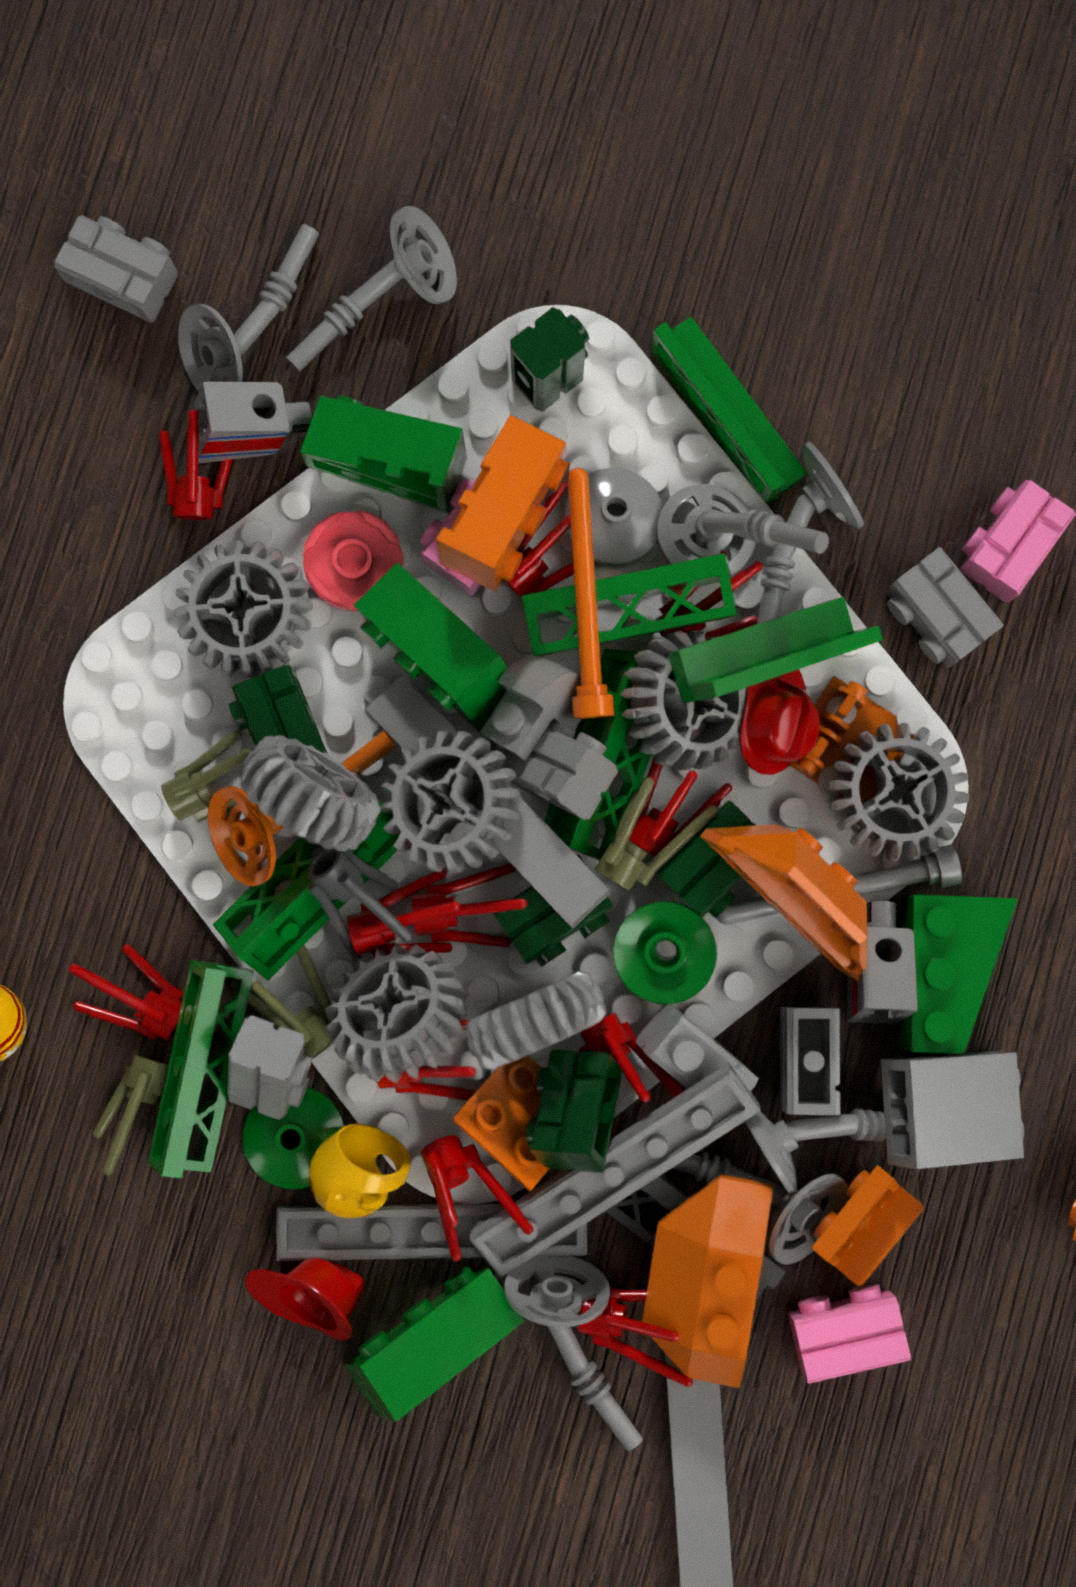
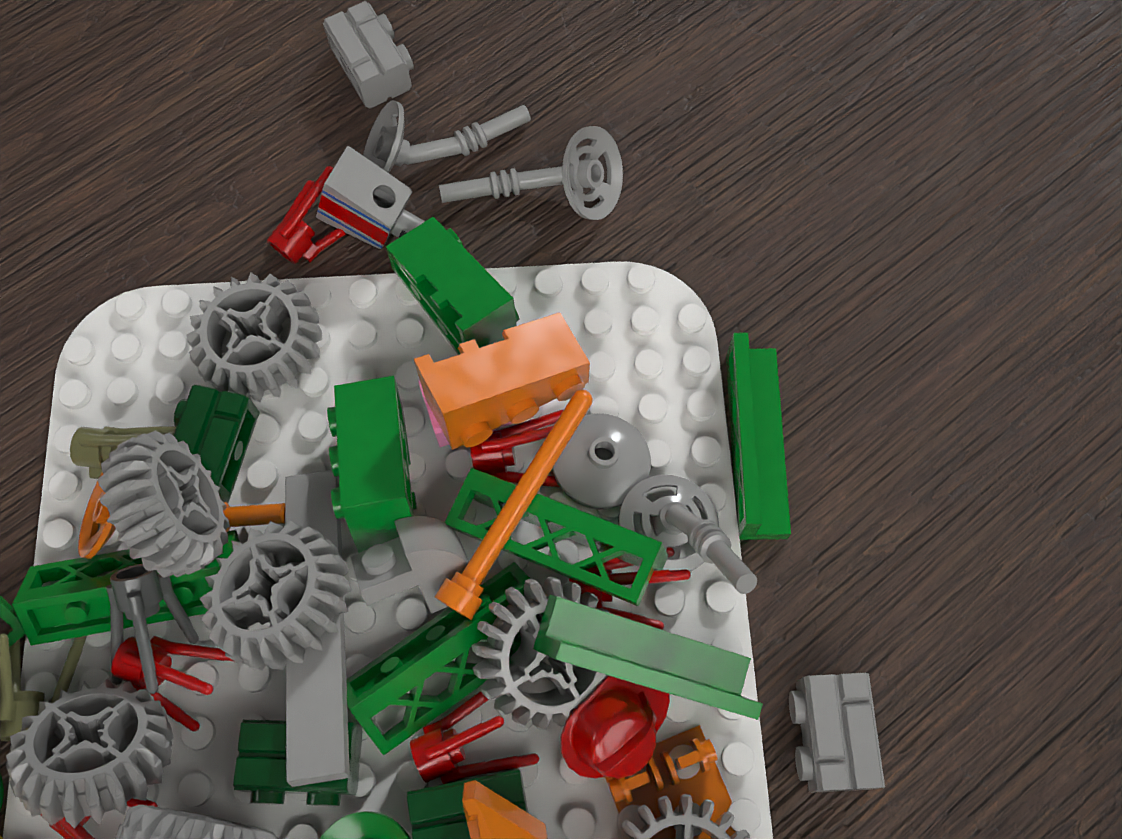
camera: 35 degrees right, 15 degrees down
(349, 556) = (367, 349): coral tile -> none
(439, 926) = (217, 676): red plant -> none
(549, 358) = (631, 298): dark green brick -> none
(565, 770) = (392, 638): light grey brick -> none
(624, 860) = (387, 755): olive plant -> none
(822, 493) = (787, 556): light grey dish -> none
(1016, 541) = (946, 717): bright pink brick -> none

